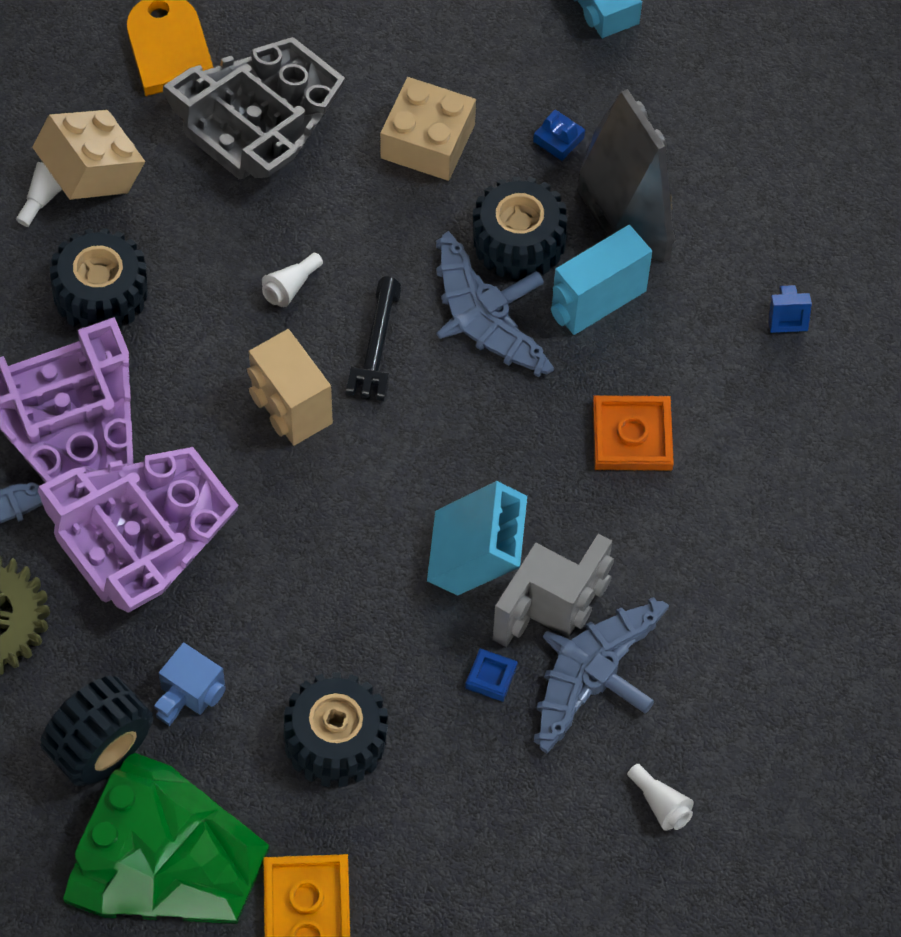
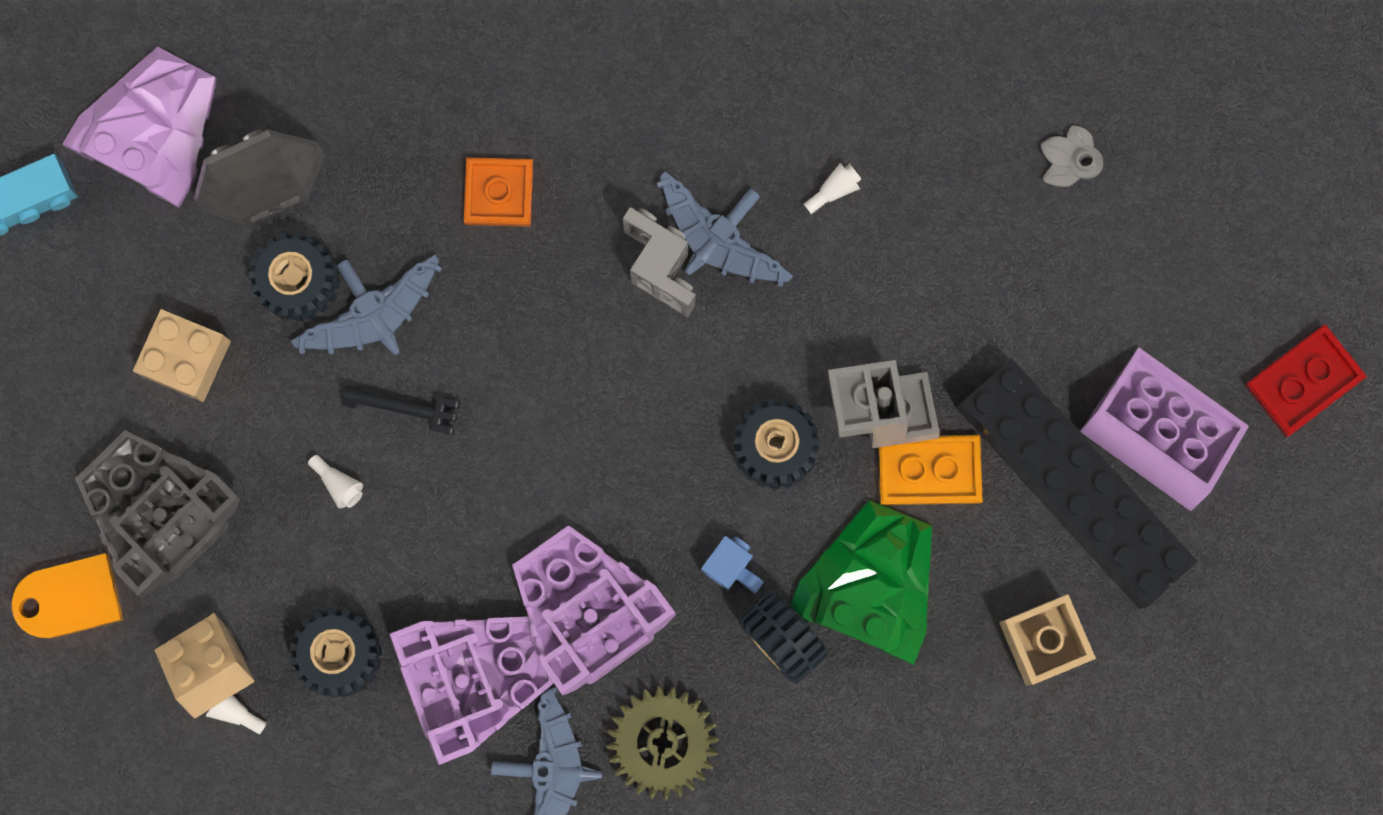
camera: 90 degrees left, 20 degrees up
(290, 387) = (458, 480): tan brick -> none
(383, 844) = (883, 404): none -> light grey bracket
(477, 538) = (613, 321): medium azure brick -> none
(491, 675) = (722, 318): blue tile -> none
(559, 135) = (188, 239): blue tile -> none
(601, 280) = (357, 207): medium azure brick -> none
(690, 91) = (149, 125): none -> lavender wedge
(789, 310) = (385, 50): blue tile -> none

